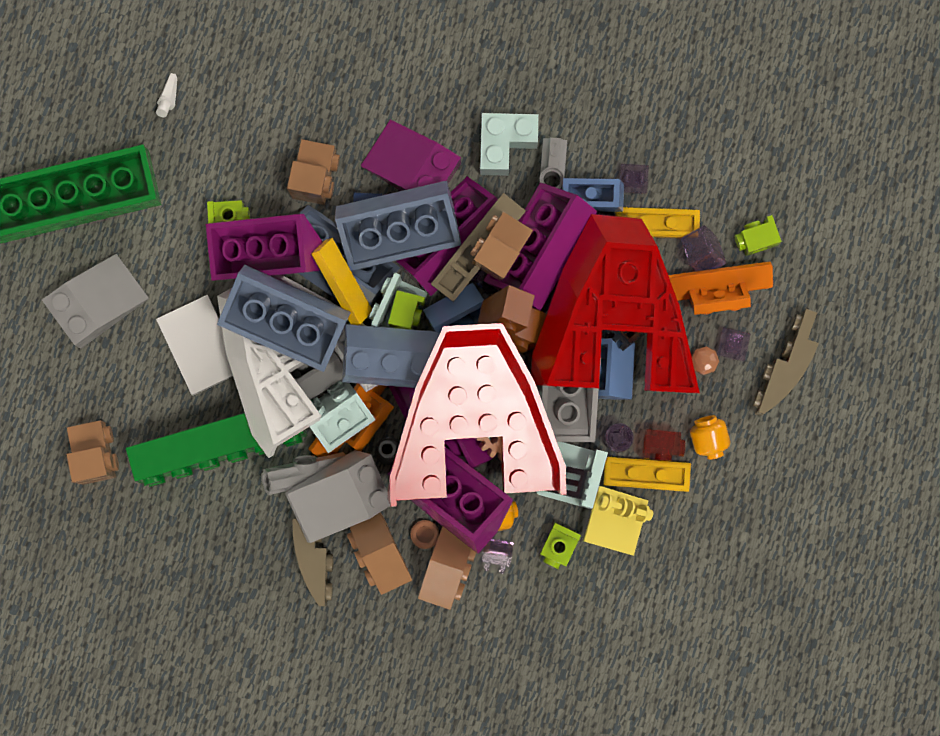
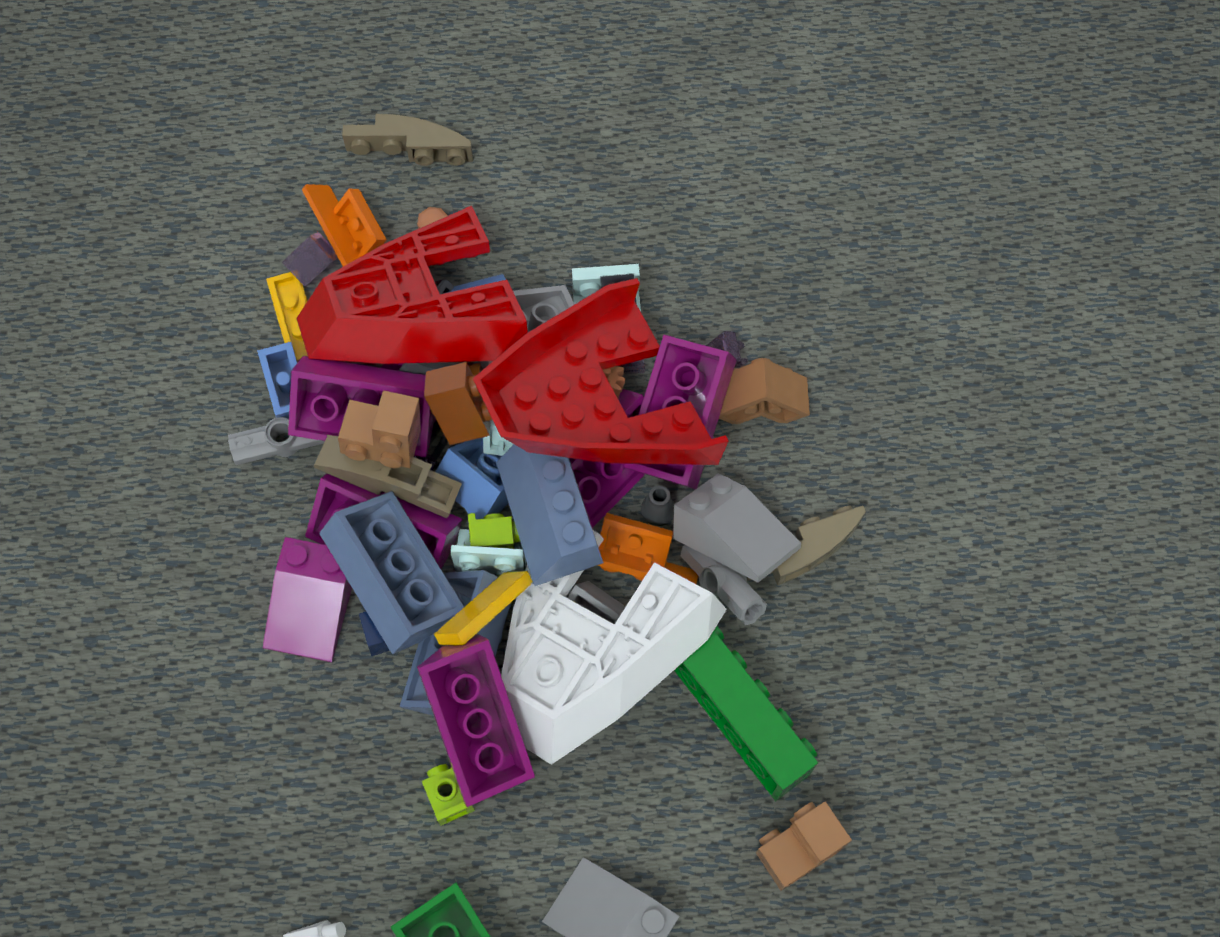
camera: 115 degrees left, 15 degrees down
(197, 344) = (617, 771): white tile -> none
(283, 318) = (552, 653): sand blue slope -> none
(311, 174) = (359, 708): medium nougat brick -> none
(341, 415) = (631, 558): light aqua bracket -> none
(378, 554) = (779, 466): medium nougat brick -> none
(424, 534) = (739, 437): nougat tile -> none
(504, 132) = (246, 510): light aqua brick -> none
(567, 537) = (688, 304): lime brick -> none
(616, 520) = (643, 246): light yellow hinge -> none
(622, 438) = (550, 267): clear purple wheel -> none
(634, 178) = (247, 357): clear purple tile -> none
(647, 474) = (575, 232): yellow tile -> none
(663, 445) = (541, 232): clear red brick -> none
(710, 437) = (514, 189): light orange head -> none
(733, 344) = (405, 201): clear purple tile -> none
(758, 237) = (277, 209): lime brick -> none

